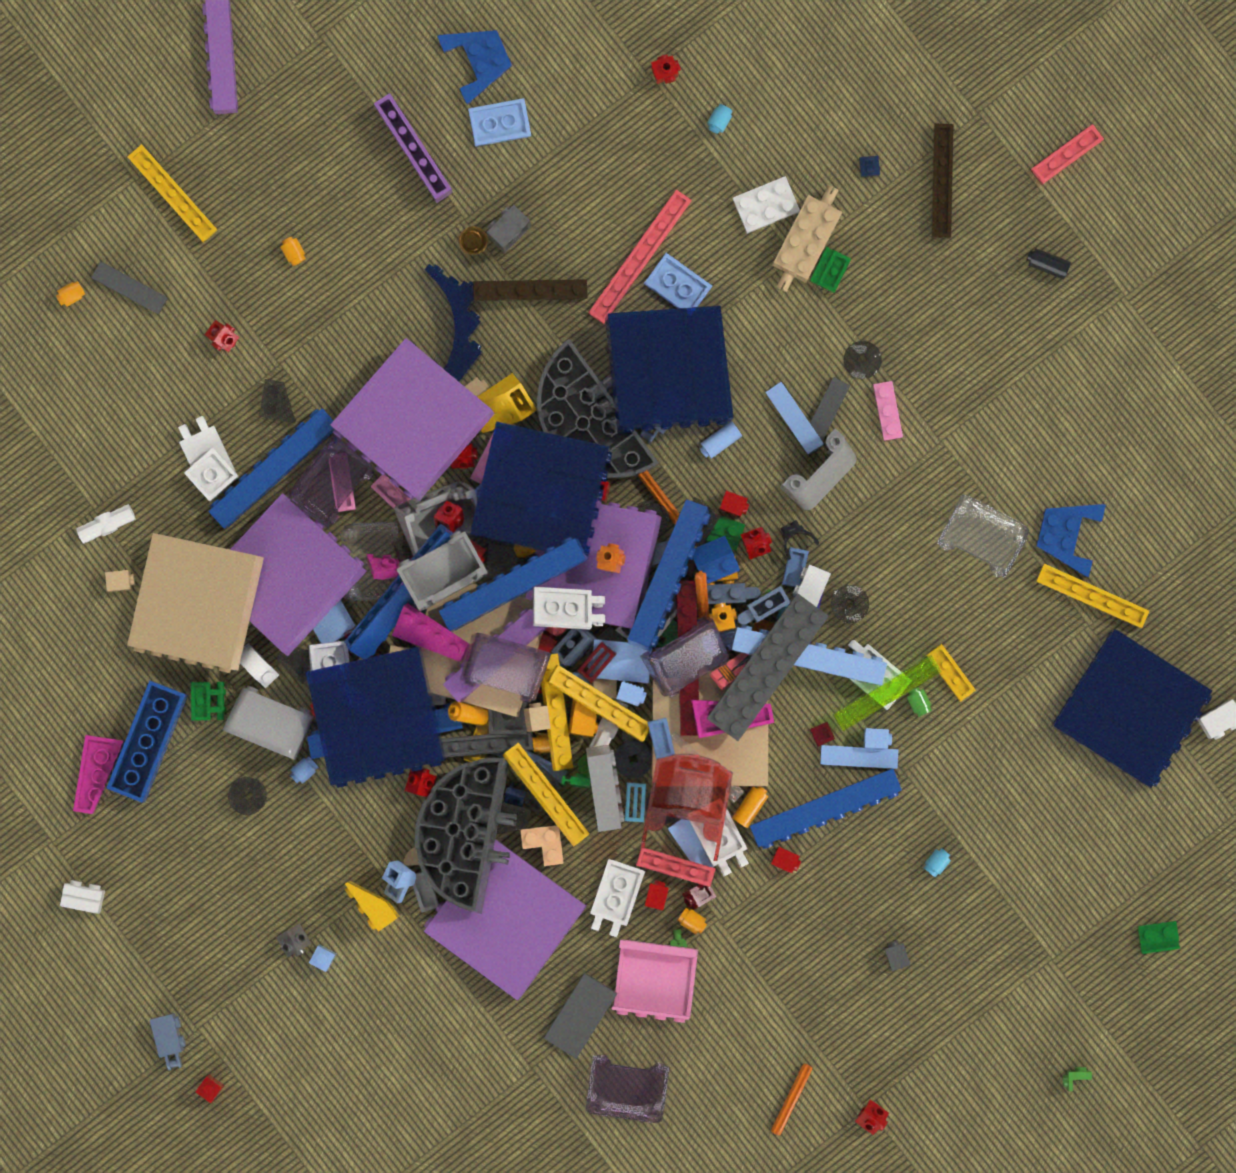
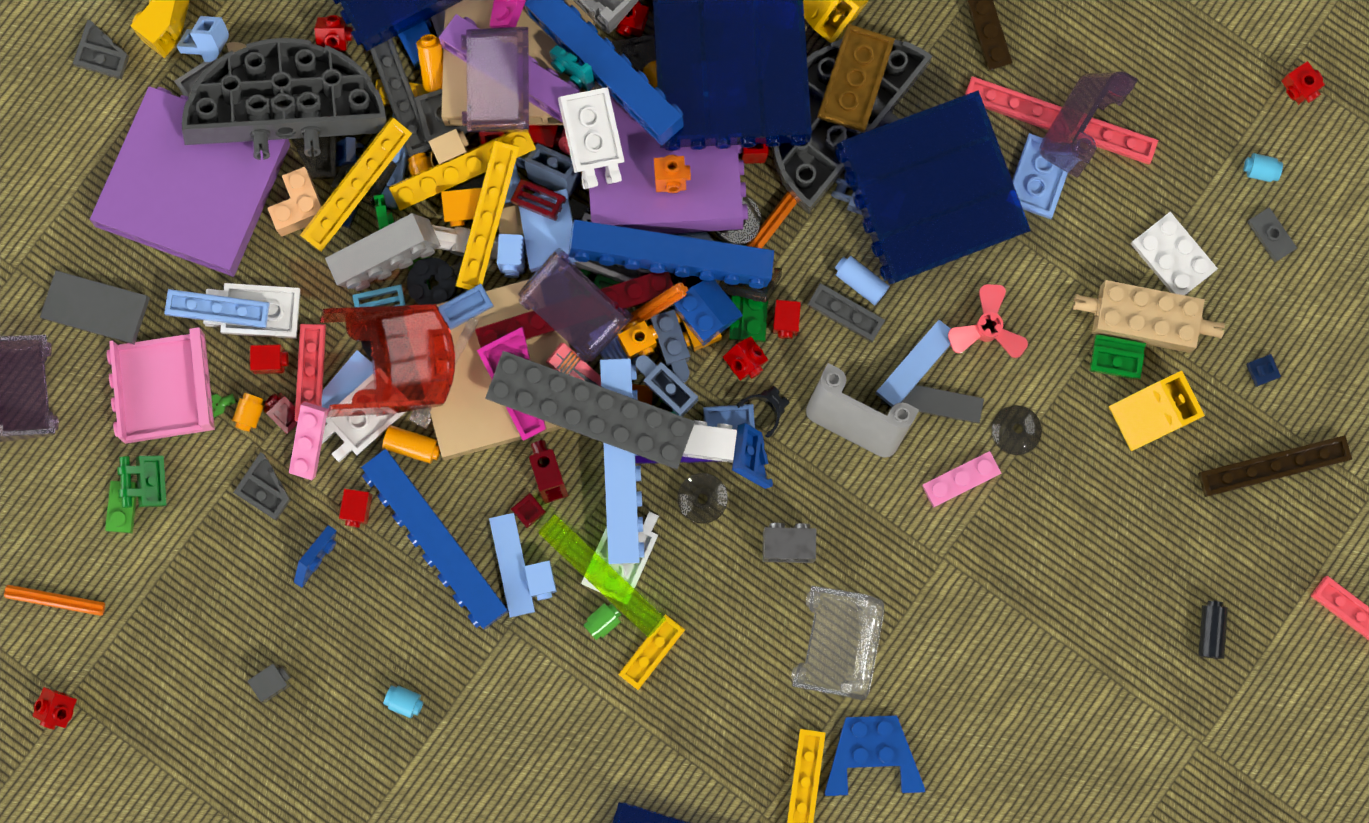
camera: 75 degrees right, 5 degrees down
(384, 962) = (100, 53): none -> dark grey wing
(503, 613) = (566, 62): none -> teal wing
(571, 400) = (856, 78): none -> pearl gold tile
(609, 923) = (217, 308): none -> light blue tile
(655, 257) = (1065, 141): none -> clear purple windscreen
(723, 1006) = (150, 481): none -> green plate
(728, 881) = (308, 440): none -> bright pink plate
(736, 1033) = (119, 518): none -> bright green plate
(741, 459) = (846, 312): none -> dark grey plate
(752, 924) = (263, 488): none -> dark grey wing
(764, 350) = (991, 300): none -> coral piece
(770, 128) = (1272, 235): none -> dark grey plate
(807, 712) = (547, 472): none -> dark red torso
(818, 901) = (314, 555): none -> blue wing
(828, 559) = (751, 456): none -> blue wing
(878, 254) = (1156, 411): none -> yellow slope
(902, 551) = (789, 544): none -> flat silver brick

